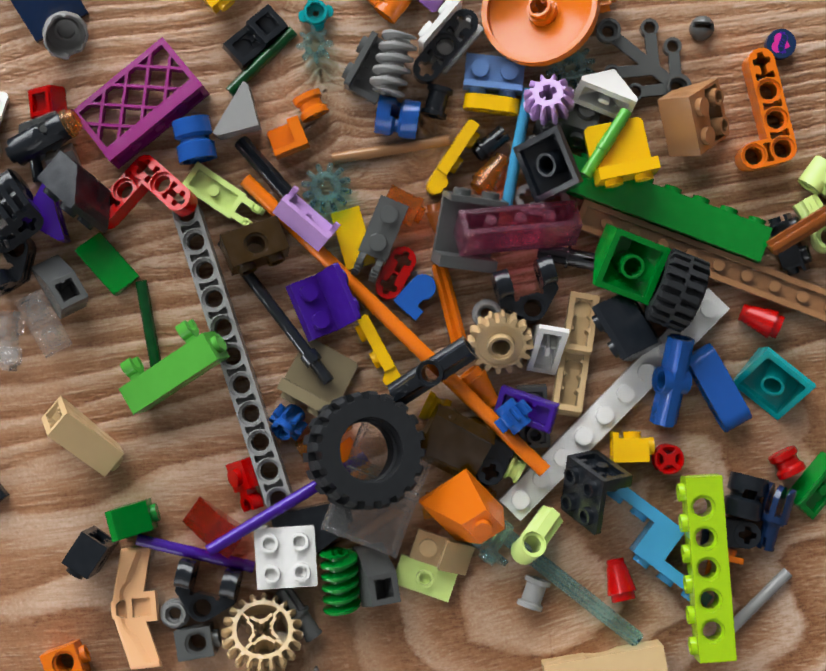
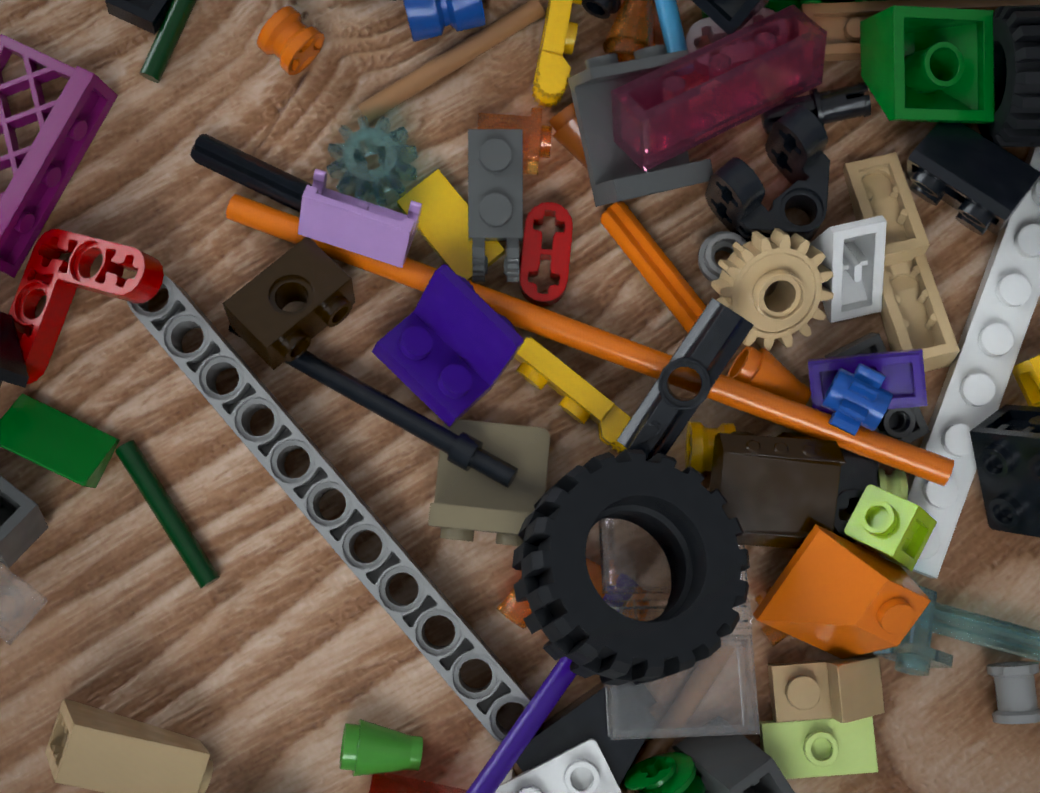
camera: 20 degrees left, 5 degrees down
(174, 371) = (239, 572): bright green brick -> none
(194, 139) = (114, 165): blue wheel -> none
(206, 486) = (378, 749): none -> bright green cone
(219, 194) = (200, 244): yellowish green hinge -> none
(239, 116) = (177, 106): light grey slope -> none
(244, 480) = (439, 711): red plate -> none
(288, 138) = (278, 109): orange panel -> none
(288, 422) = (472, 577): blue gear -> none
(418, 289) = (596, 265): blue leg -> none
(504, 485) = (890, 526): none -> lime bracket
(537, 535) = (980, 590): yellowish green piece -> none

